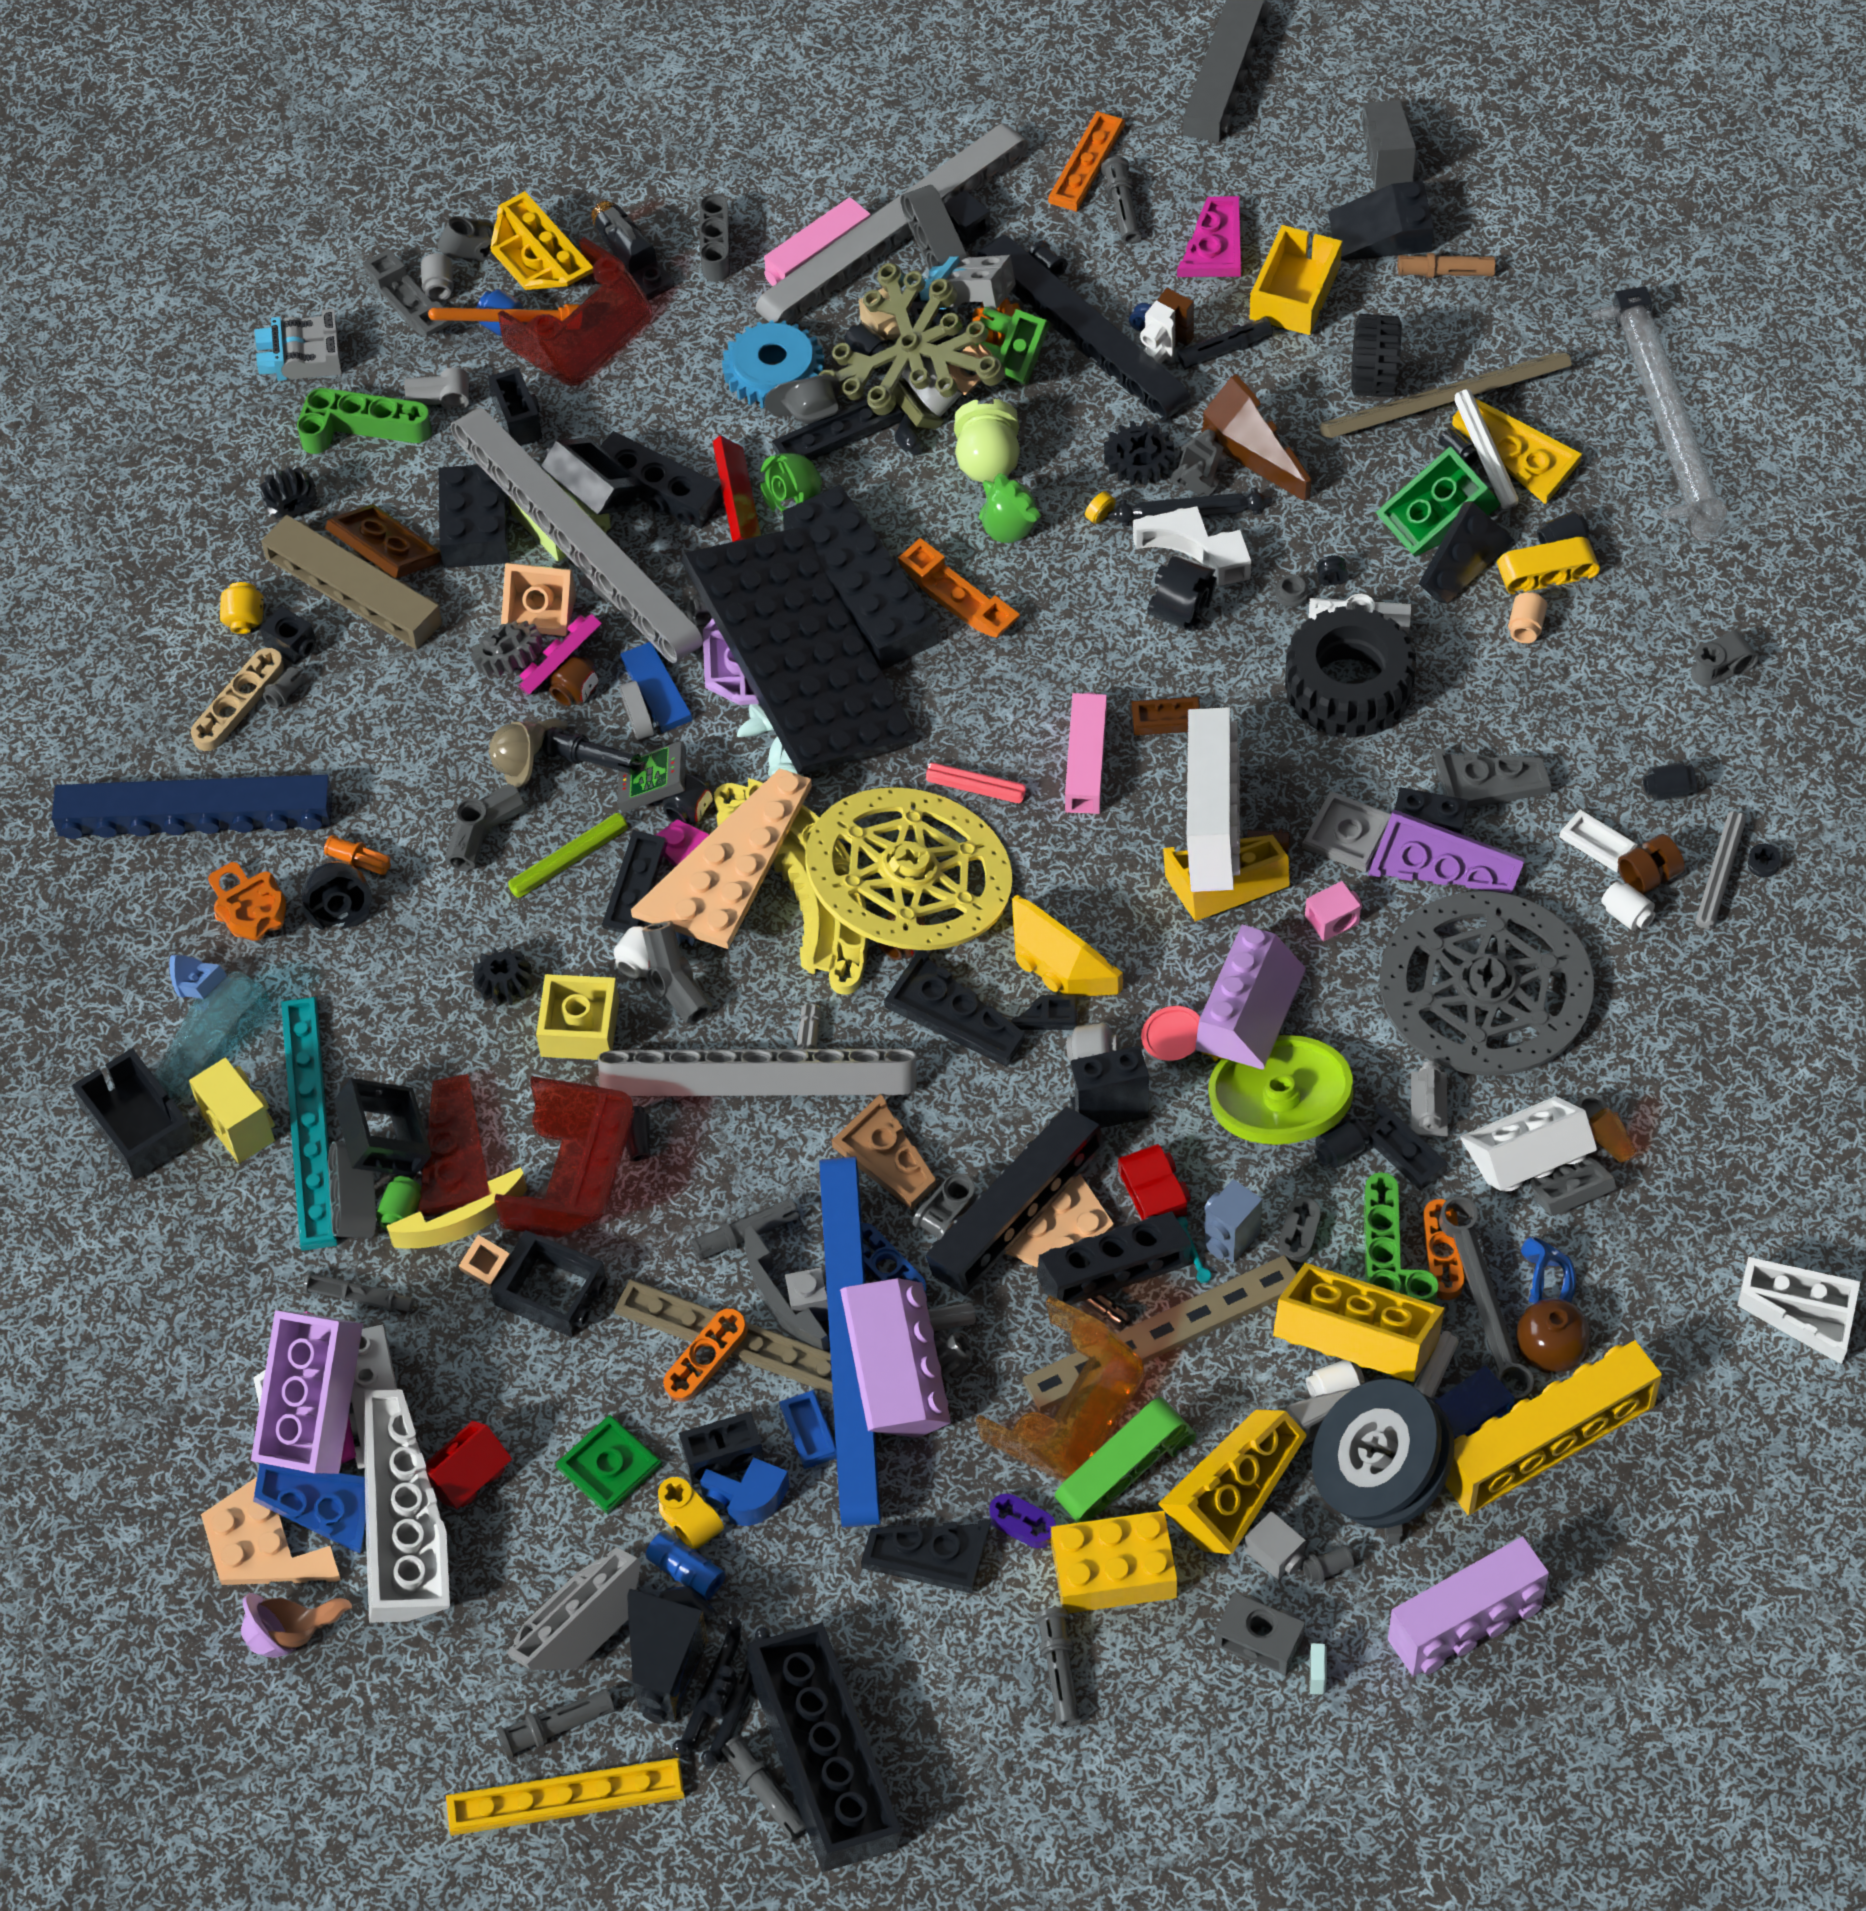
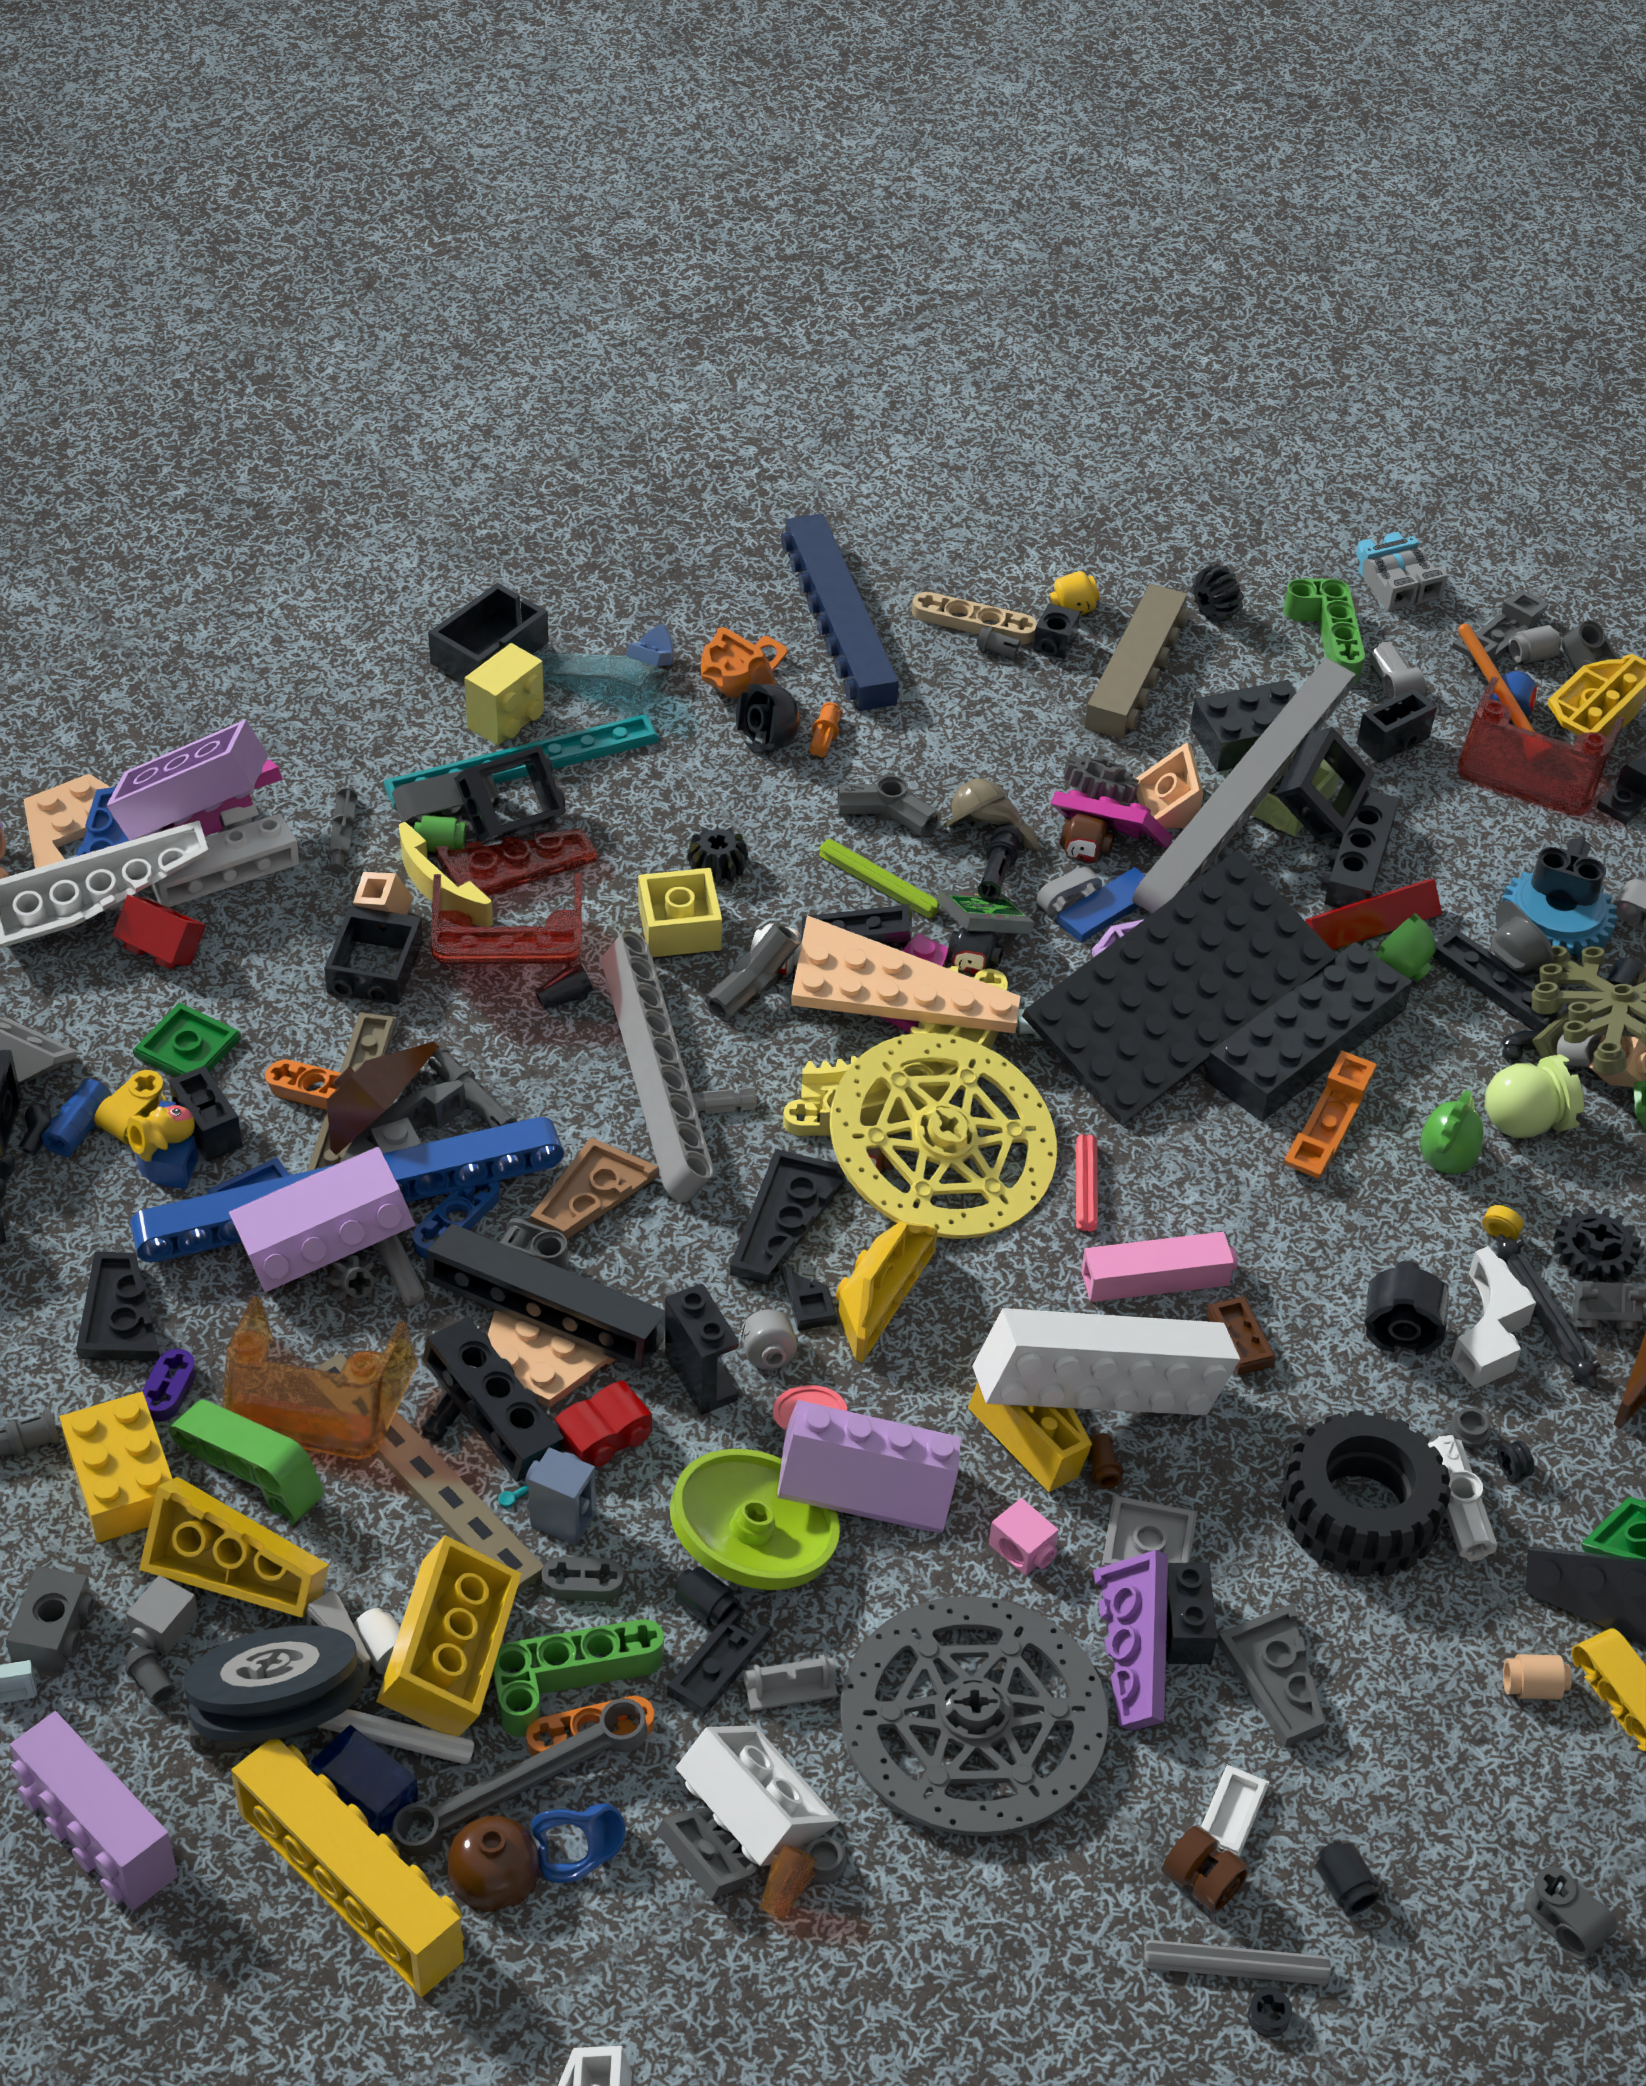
camera: 70 degrees right, 10 degrees down
(384, 541) = (1192, 667): reddish brown tile -> none
(750, 1473) = (162, 1127): none -> yellow animal
(755, 337) = (1569, 873): none -> black beam
(761, 1292) = (370, 1090): none -> reddish brown wedge
(1628, 906) = (1138, 1856): white brick -> none

